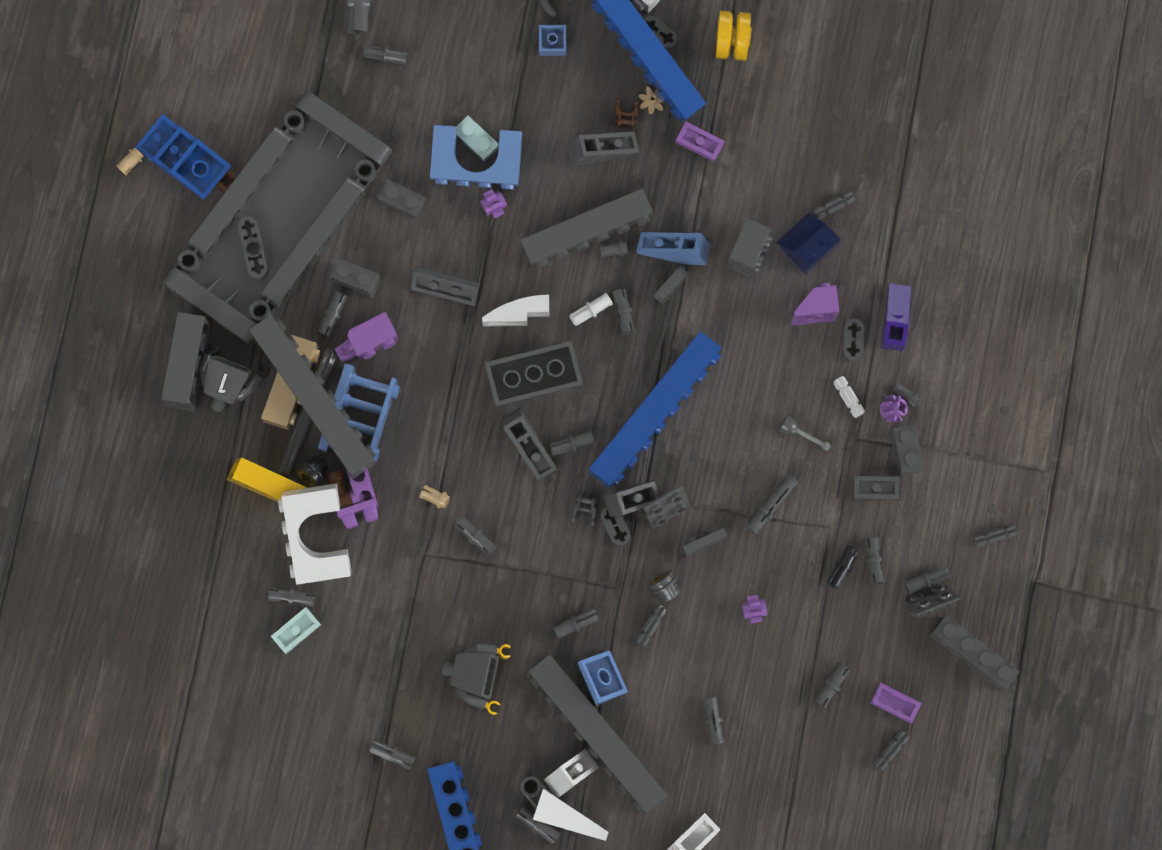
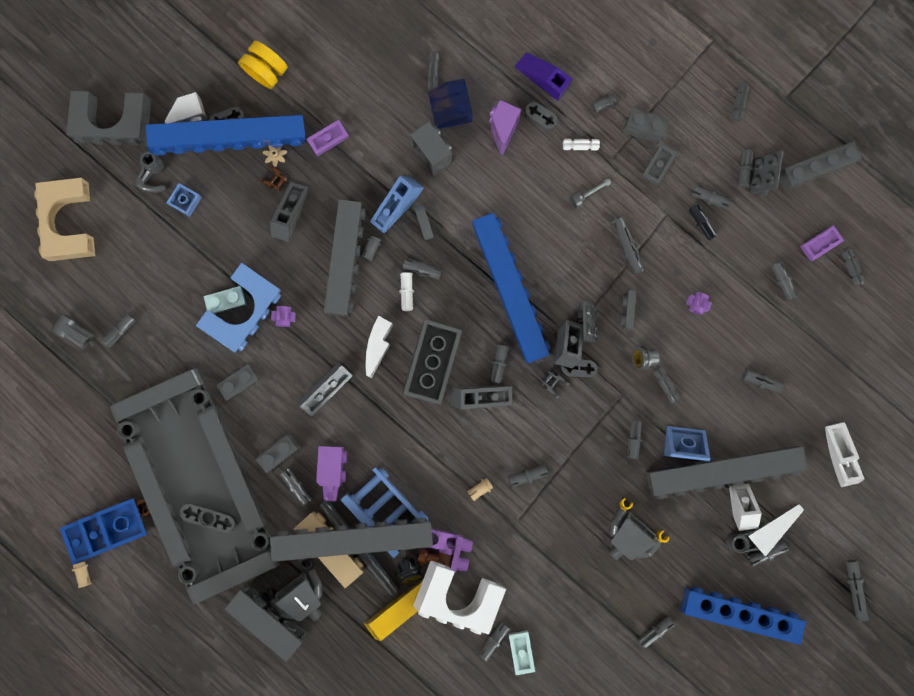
camera: 60 degrees left, 5 degrees up
(893, 408) = (609, 117): medium lavender gear -> none

